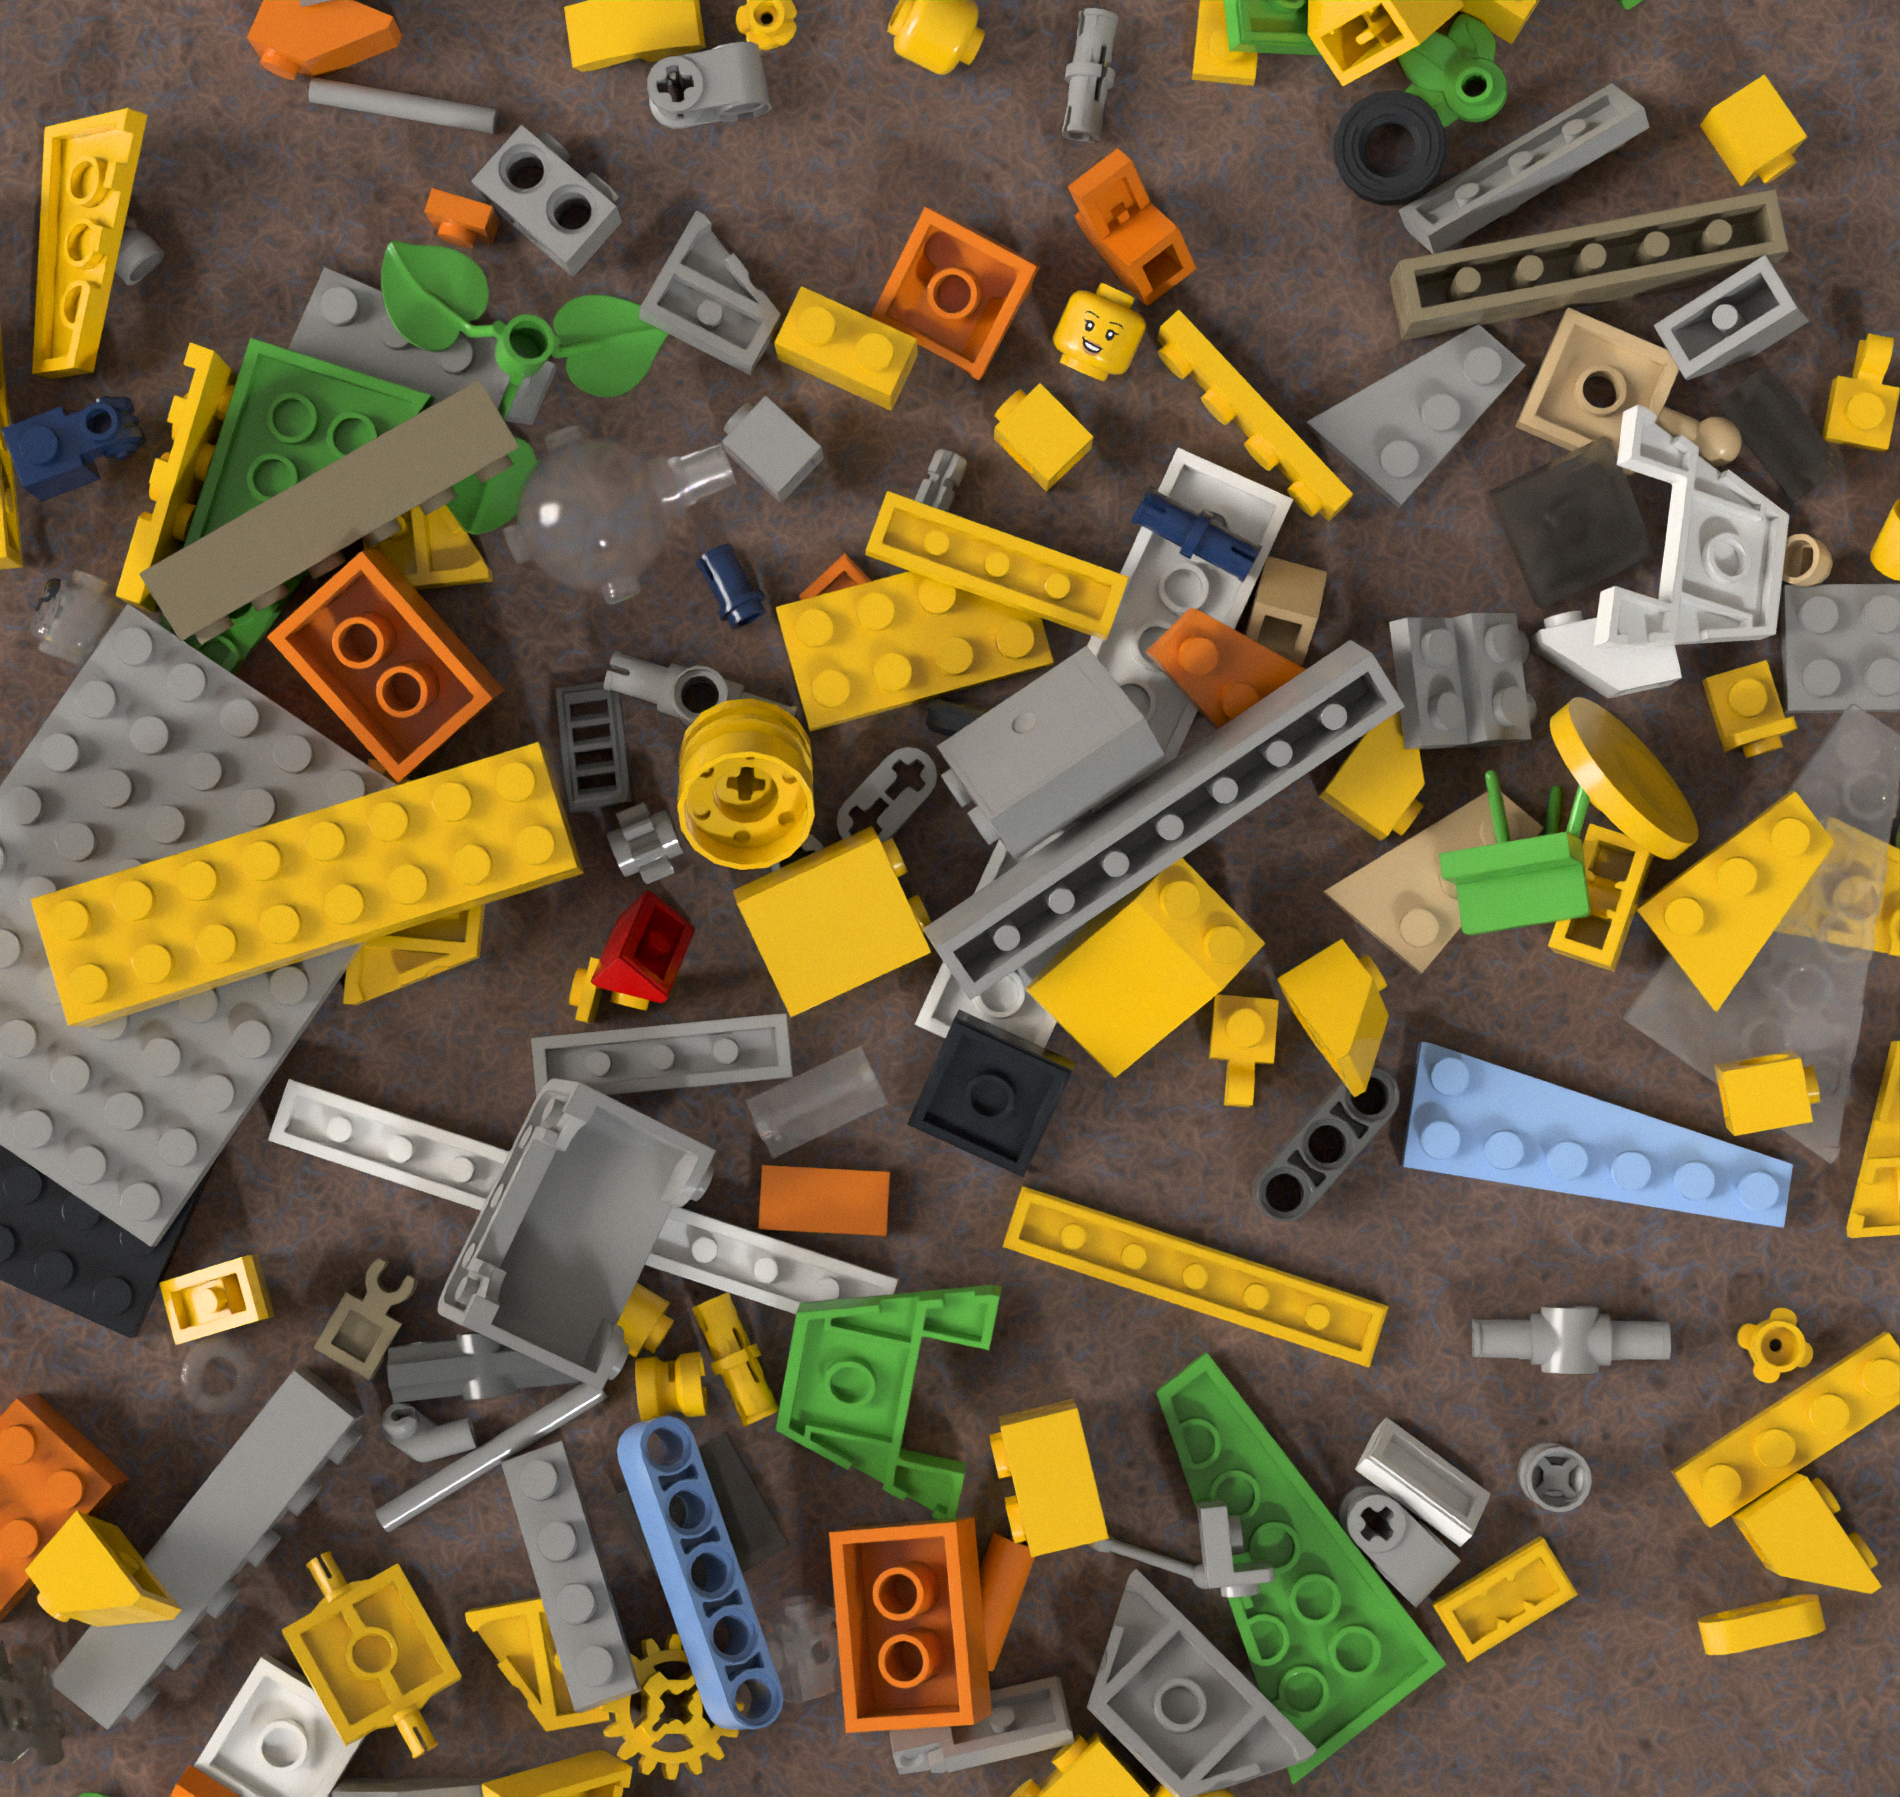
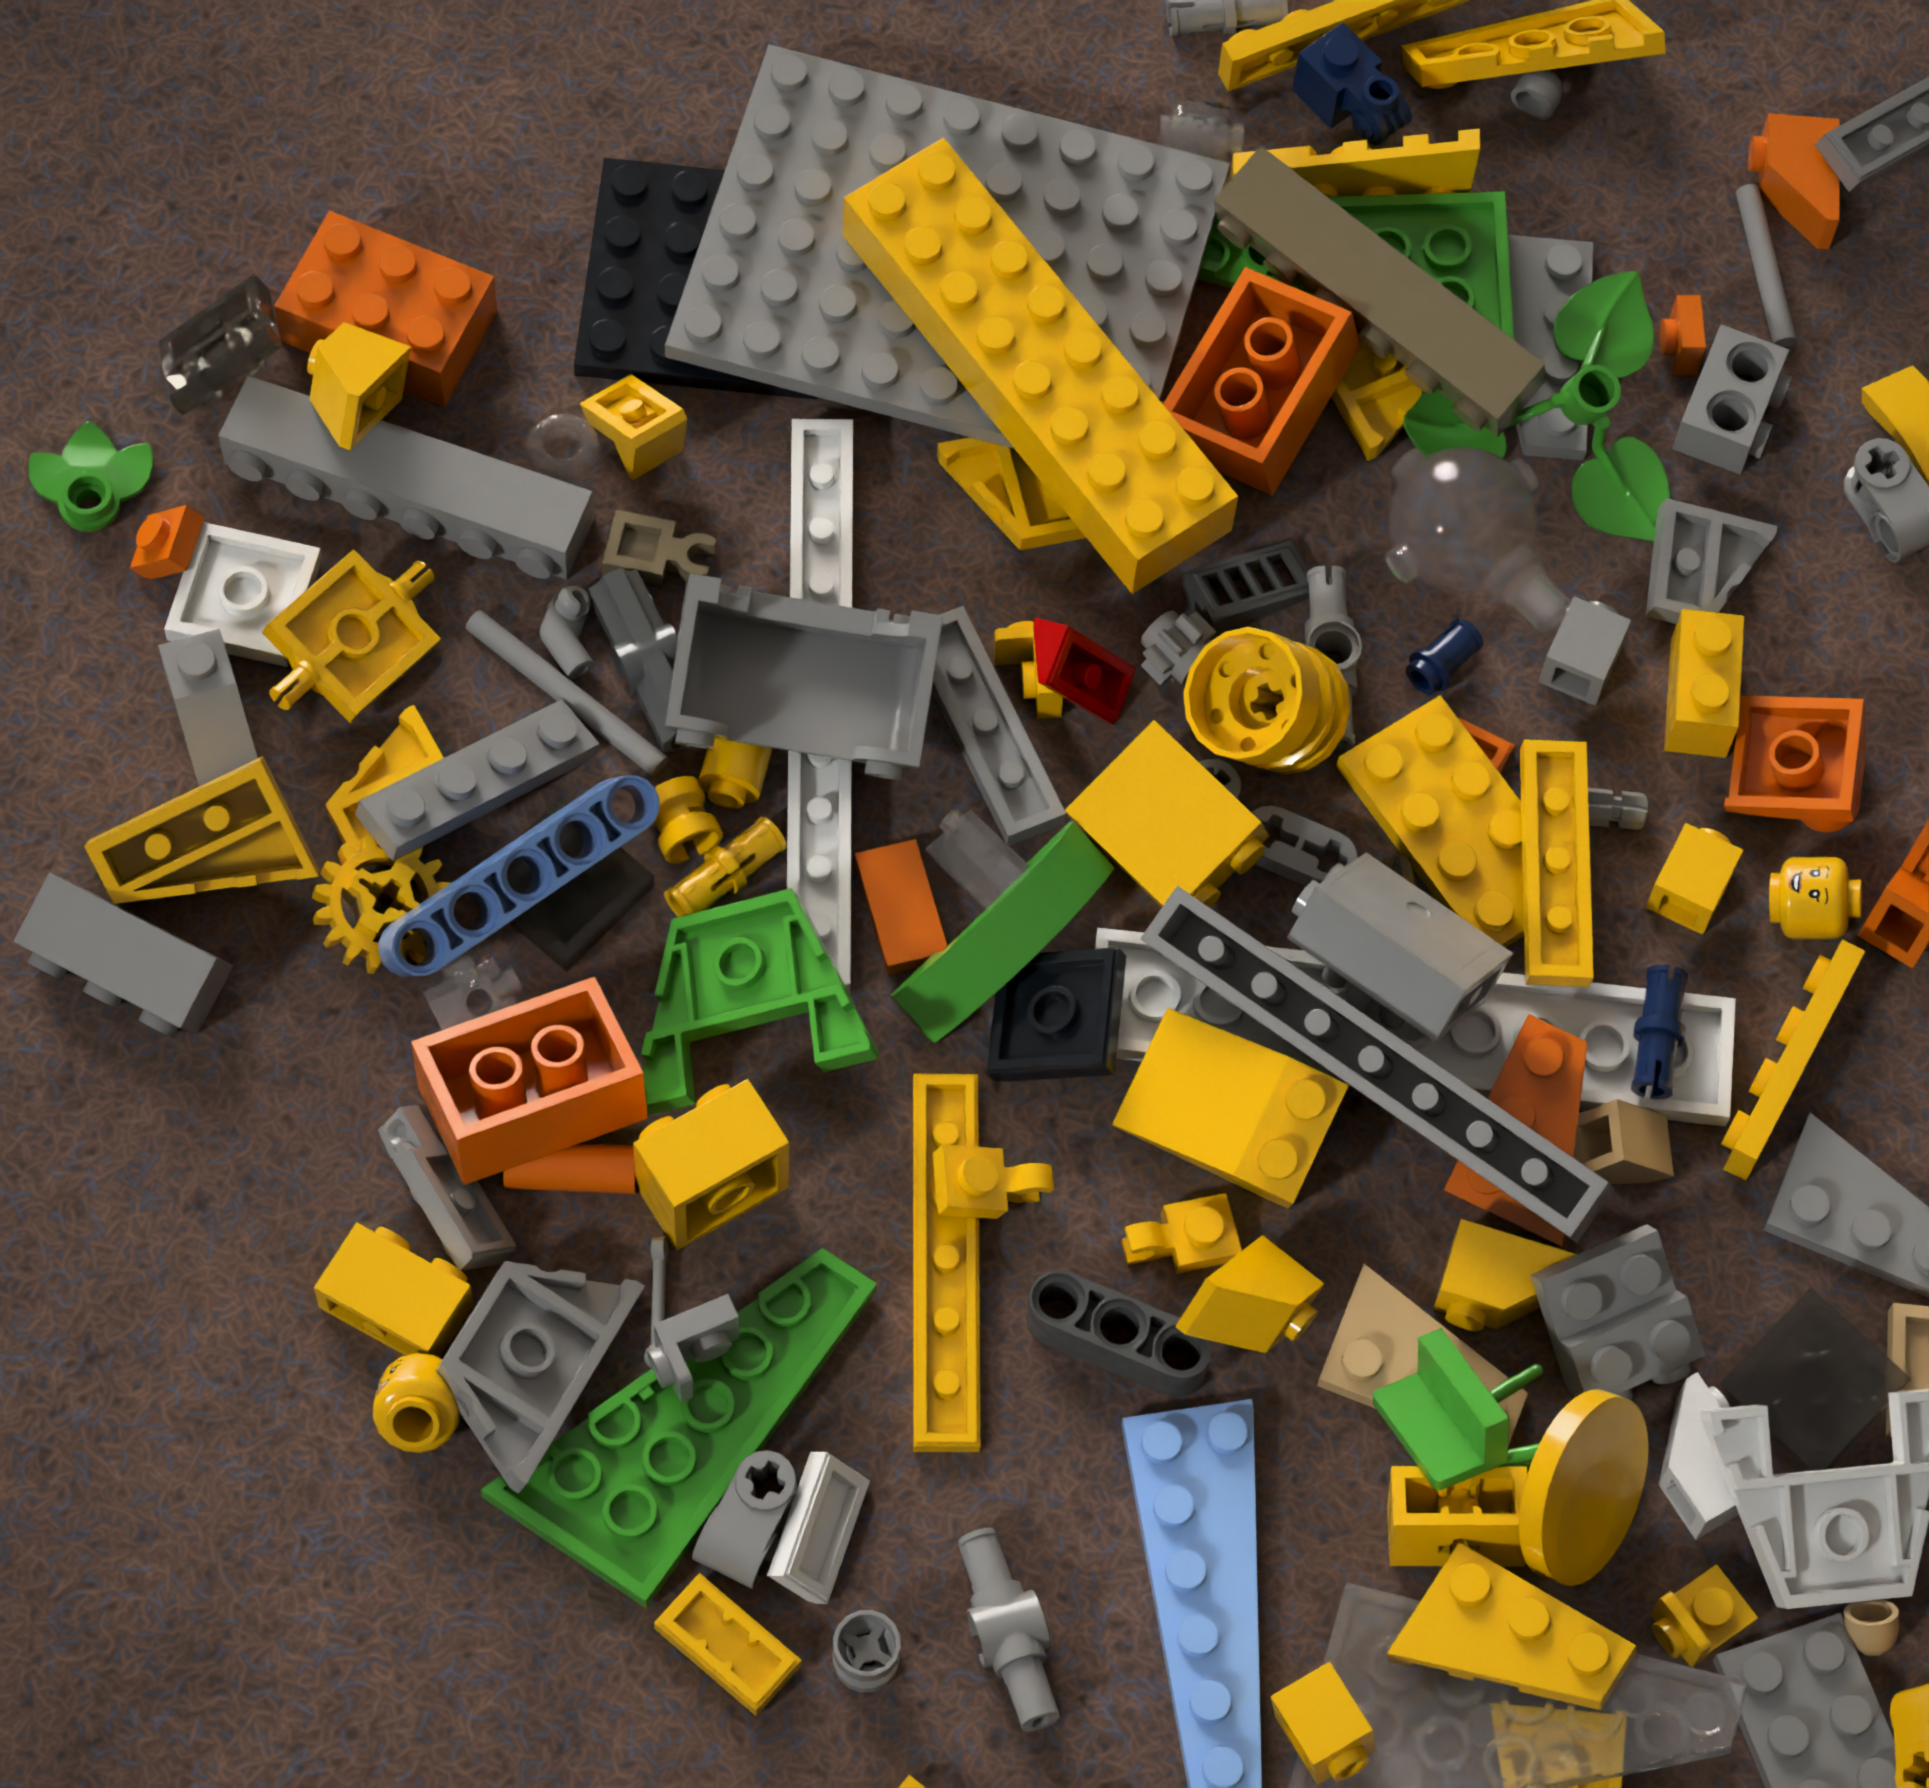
camera: 65 degrees right, 20 degrees down
(898, 1109) = (1004, 934): none -> bright green slope
(1136, 1224) = (977, 1185): none -> yellow plate

